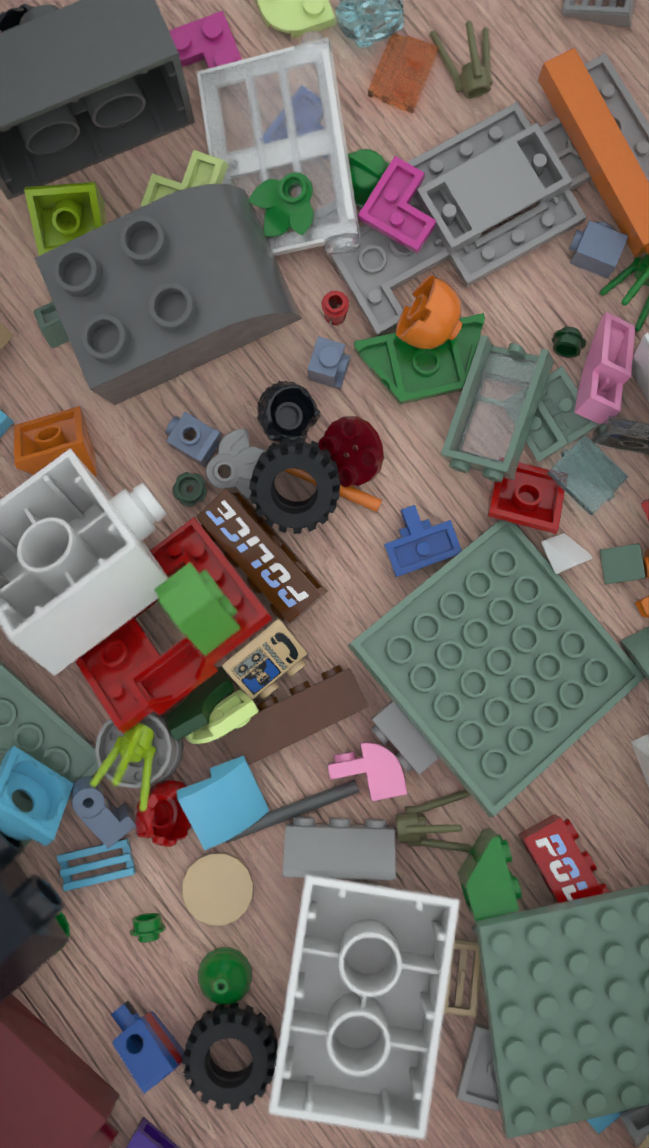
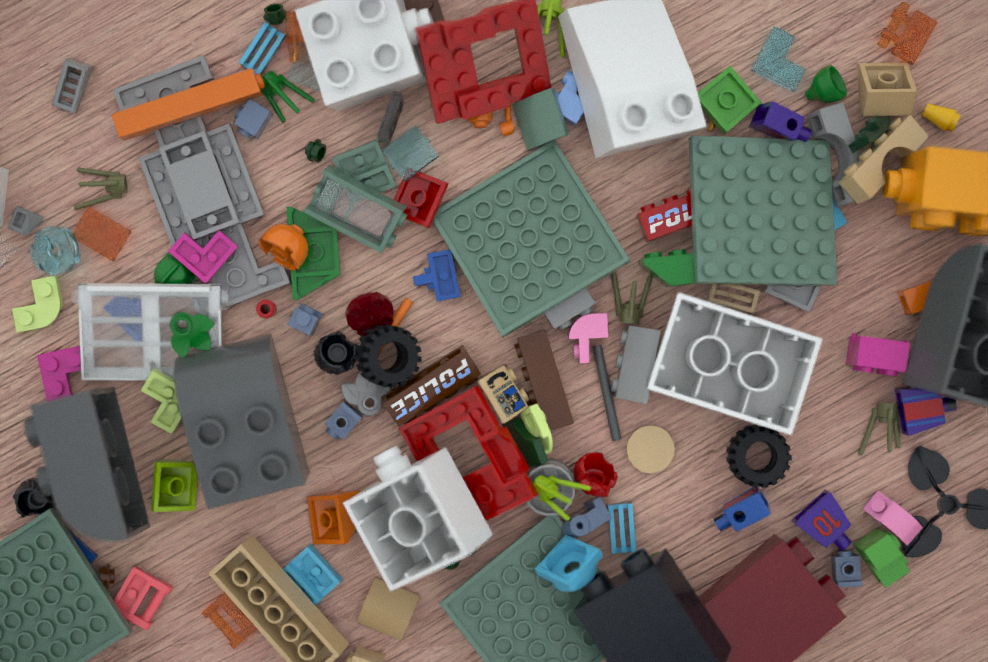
camera: 85 degrees left, 5 degrees up
(51, 325) = (246, 508): sand green slope -> none
(147, 927) = (668, 499): green plate -> none
(180, 489) = (377, 435): dark green plate -> none
(198, 608) = (463, 432): bright green brick -> none
(223, 803) = (594, 436): medium azure slope -> none
(224, 976) = (708, 452): green helmet -> none
(564, 553) = (461, 179): white slope -> none
(606, 369) = (339, 128): bright pink slope -> none
(622, 564) = (475, 141): sand green slope -> none

